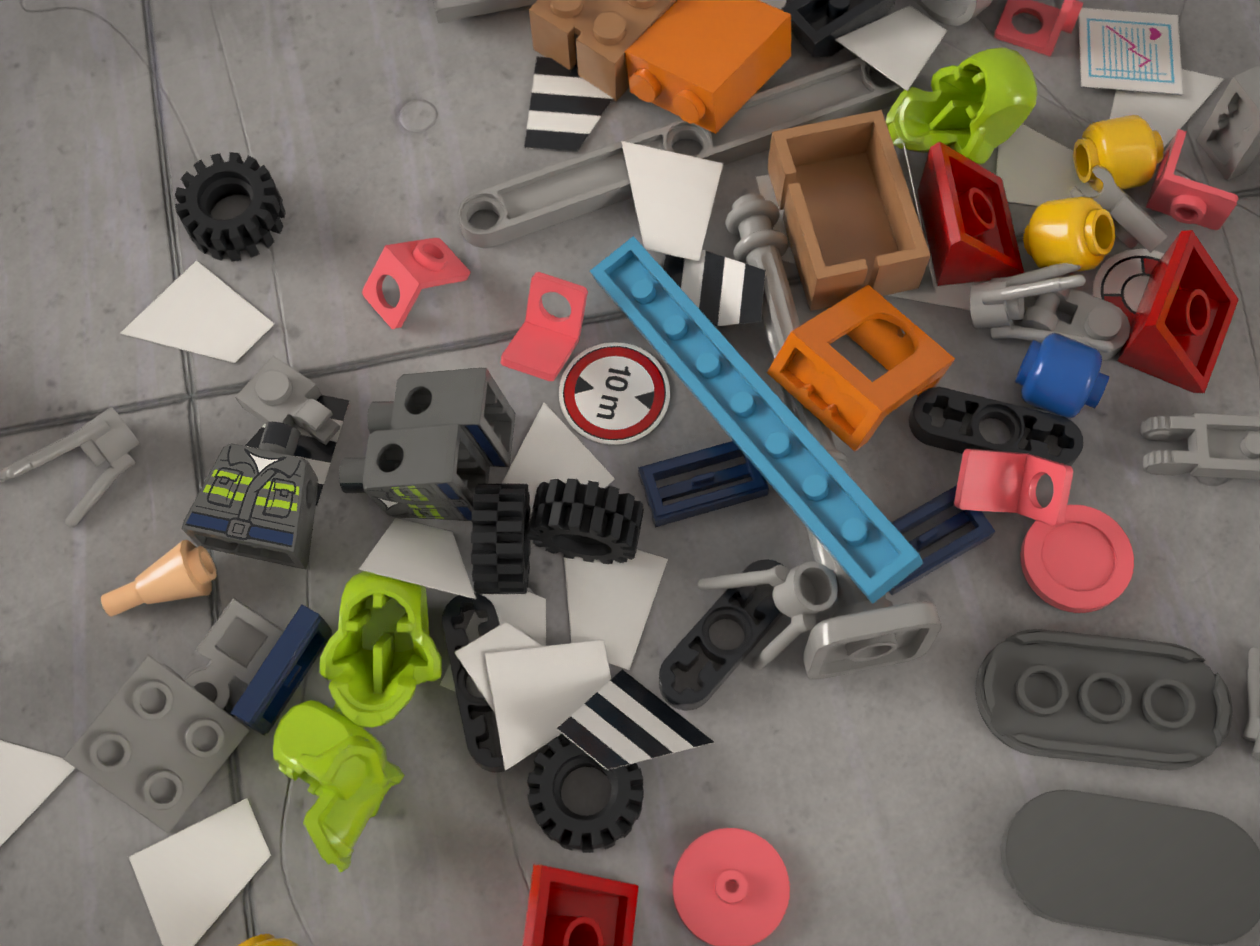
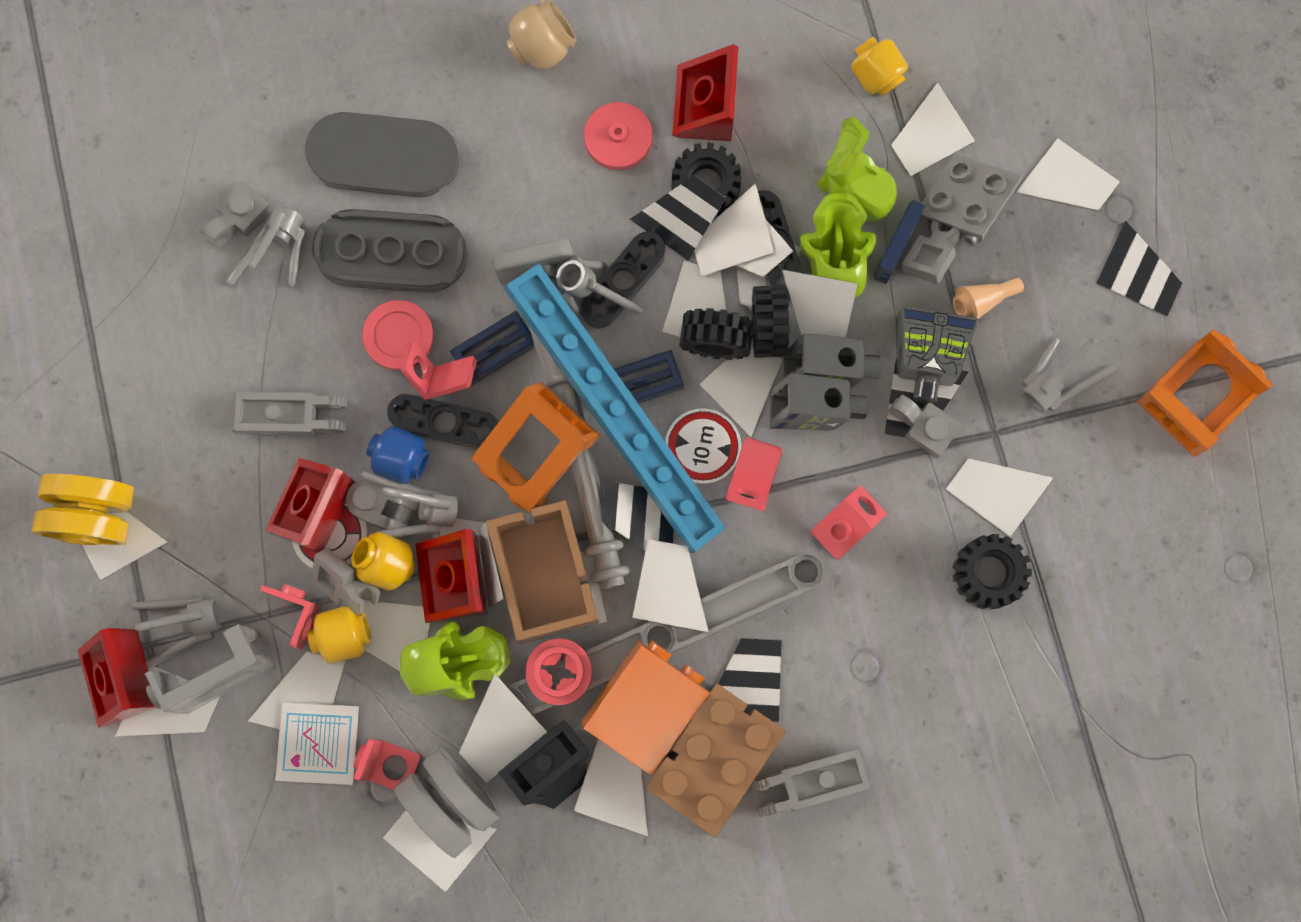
camera: 175 degrees right, 10 degrees up
(805, 81) = (542, 682): none -> coral gear

